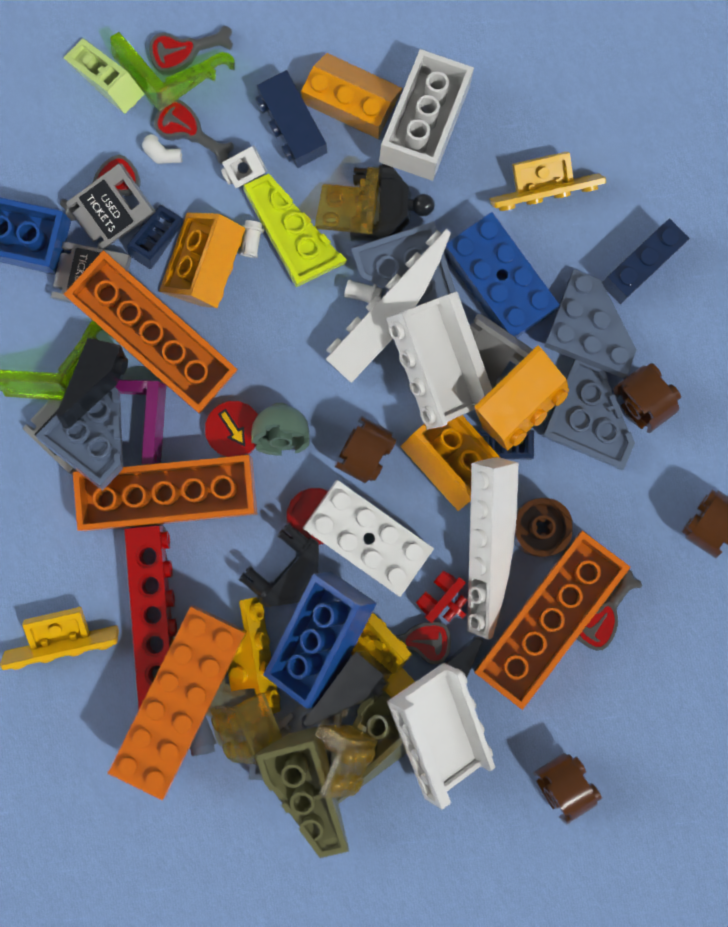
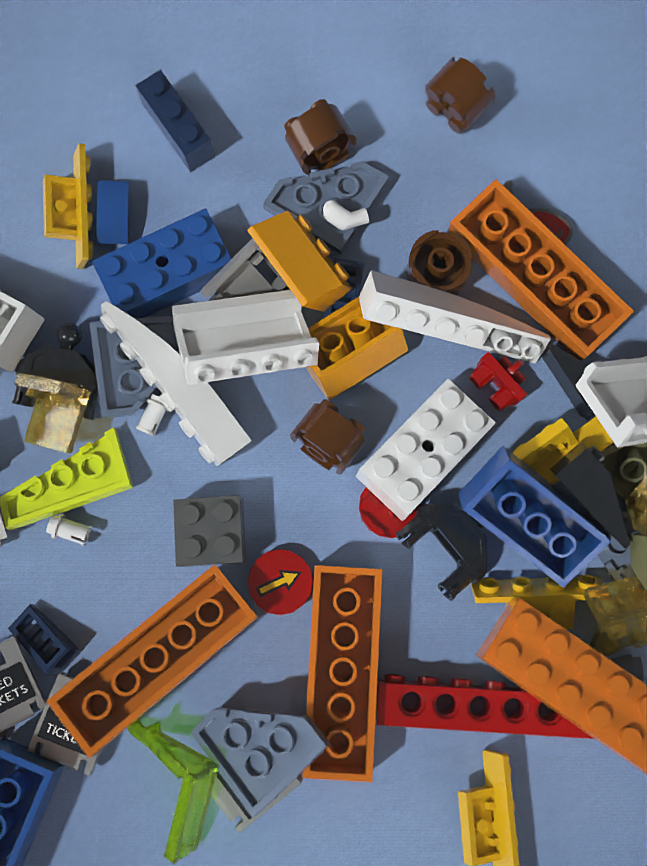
camera: 80 degrees left, 5 degrees down
(92, 379) = (196, 737): black slope -> none
(154, 415) = (247, 670): magenta hinge -> none
(202, 259) = (80, 588): light orange slope -> none
(266, 360) = (209, 531): none -> dark grey brick
(280, 429) = (289, 527): sand green cylinder -> none
(429, 640) = (542, 404): piece -> none
(546, 220) = (112, 212): none -> blue slope
(572, 432) = (343, 218): none -> white arm
(591, 327) = (235, 185): sand blue plate -> none

